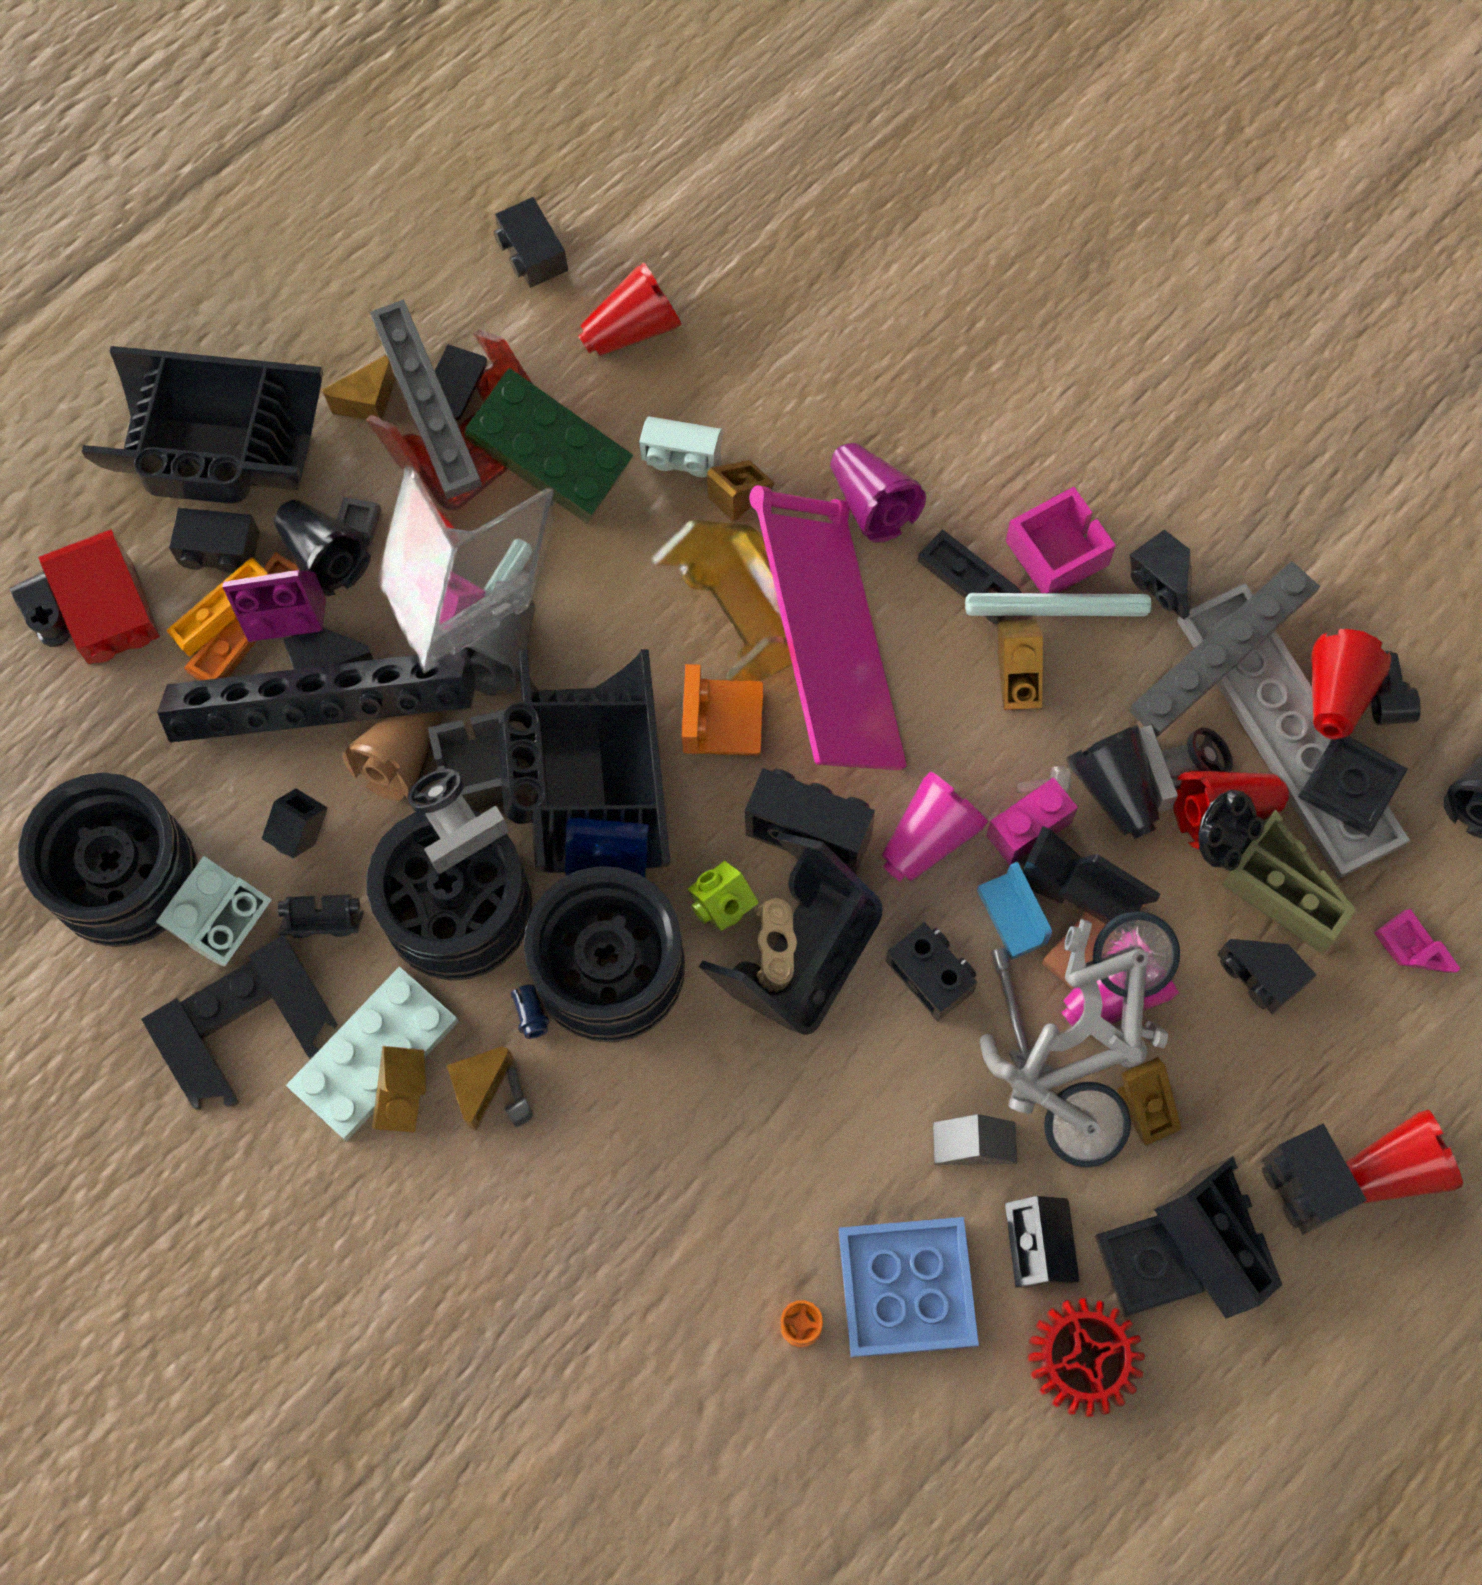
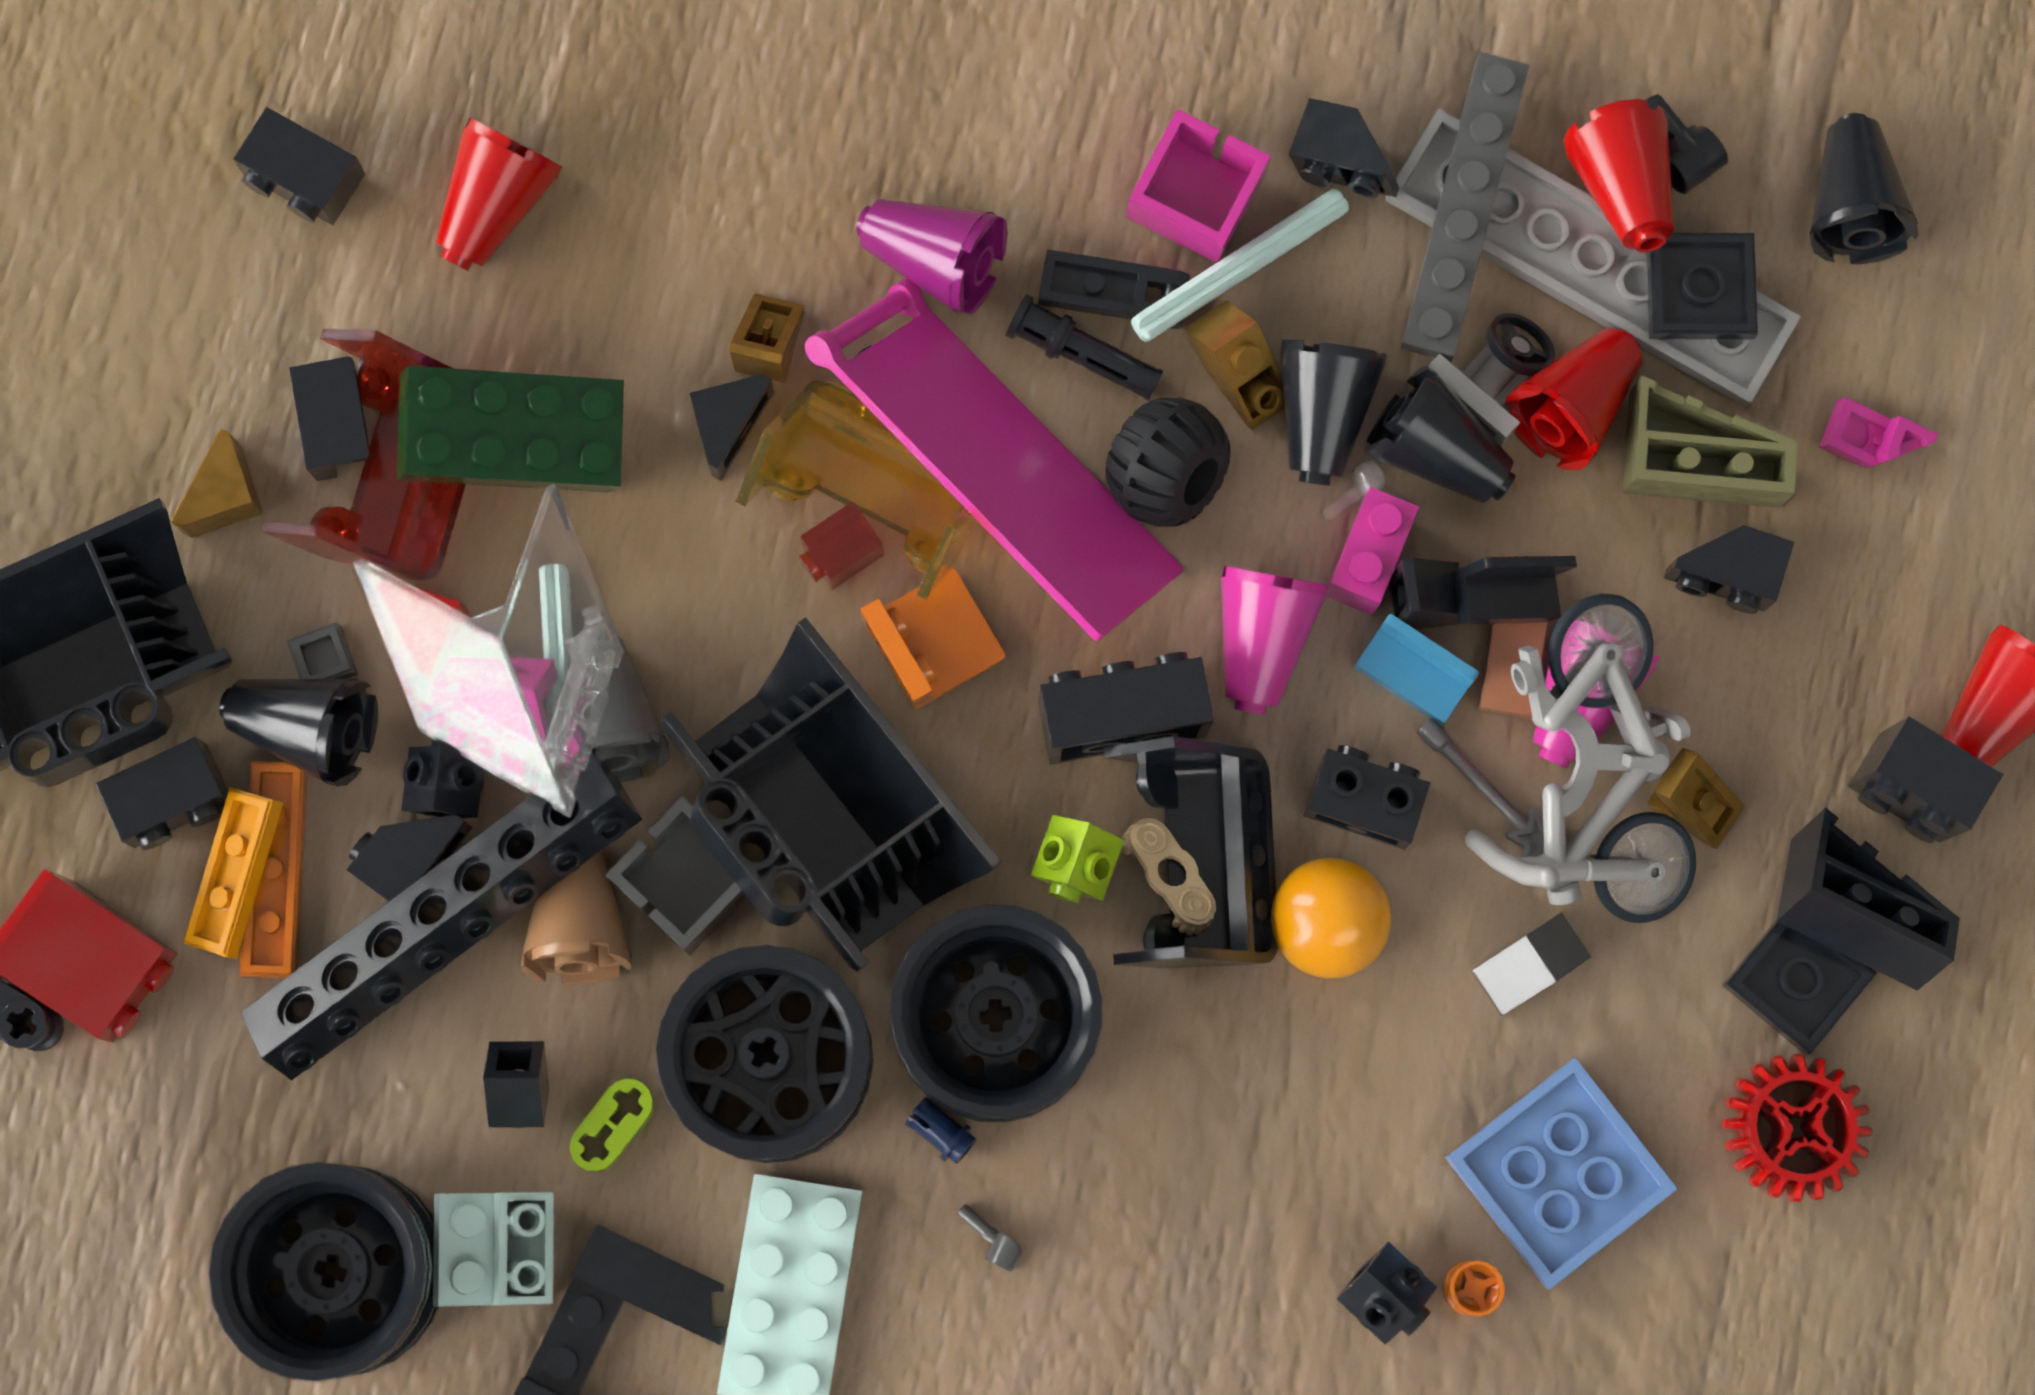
camera: 40 degrees left, 10 degrees up
(277, 604) = (316, 834): magenta slope -> none
(334, 877) = (601, 1117): none -> lime beam
(338, 916) = (642, 1163): black hinge -> none
(373, 624) = (441, 782): none -> black brick
(399, 1089) = (855, 1315): pearl gold slope -> none
(426, 399) = (315, 458): dark grey plate -> none
(453, 820) = (727, 974): light grey piece -> none
(477, 1082) = (936, 1251): pearl gold slope -> none
(606, 845) = (918, 895): clear blue plate -> none
(678, 510) = (728, 416): none -> black slope
(680, 446) = (673, 331): light aqua brick -> none
(701, 629) = (840, 546): none -> clear red brick
(742, 1290) = (1388, 1294): none -> black brick
(861, 1032) = (1331, 918): none -> light orange piece
(918, 586) = (1061, 337): none -> black pin
(937, 695) = (1168, 461): none -> black wheel
(1041, 1241) = (1672, 1030): black panel -> none
(1059, 715) = (1325, 404): none -> black cone
(1228, 829) = (1609, 435): black dish -> none

